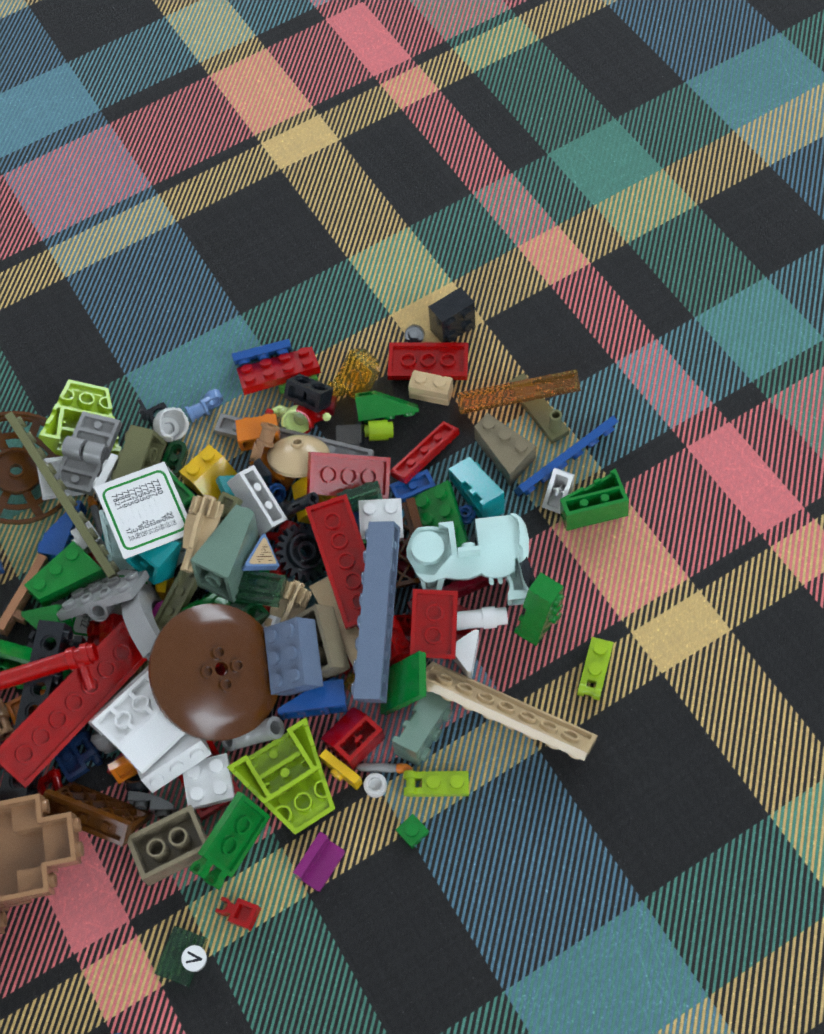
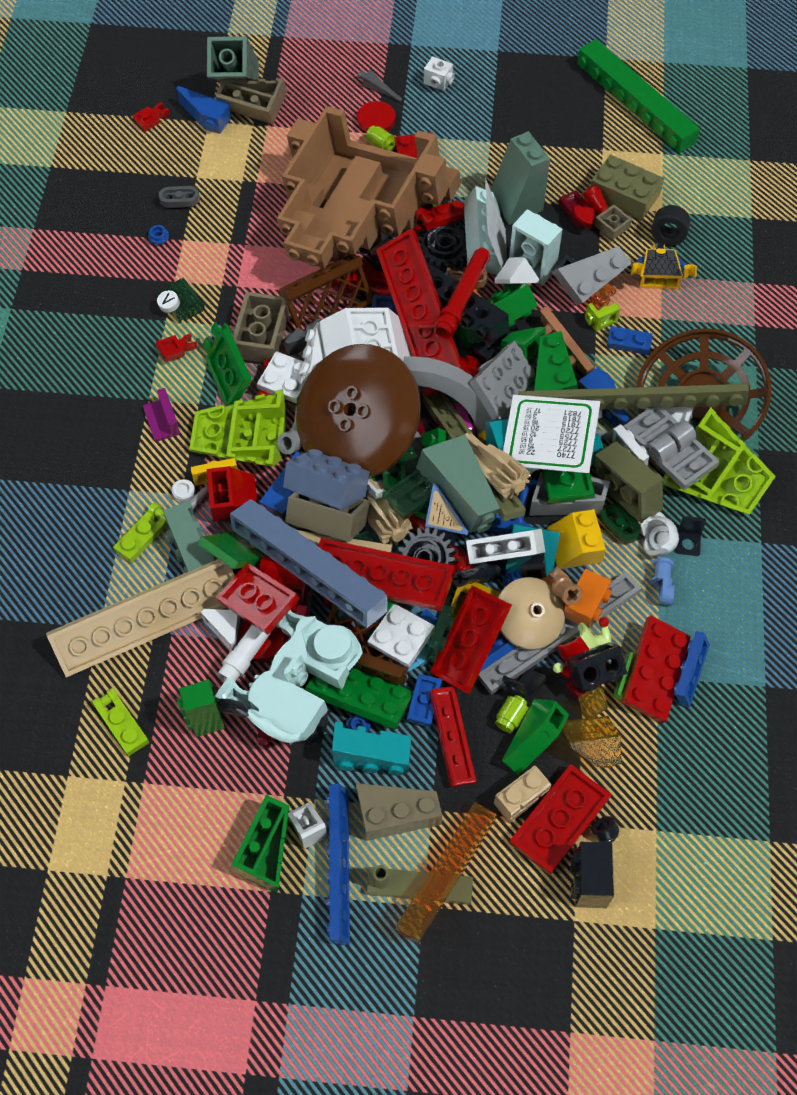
camera: 120 degrees right, 0 degrees up
(412, 831) = (125, 492): green plate -> none

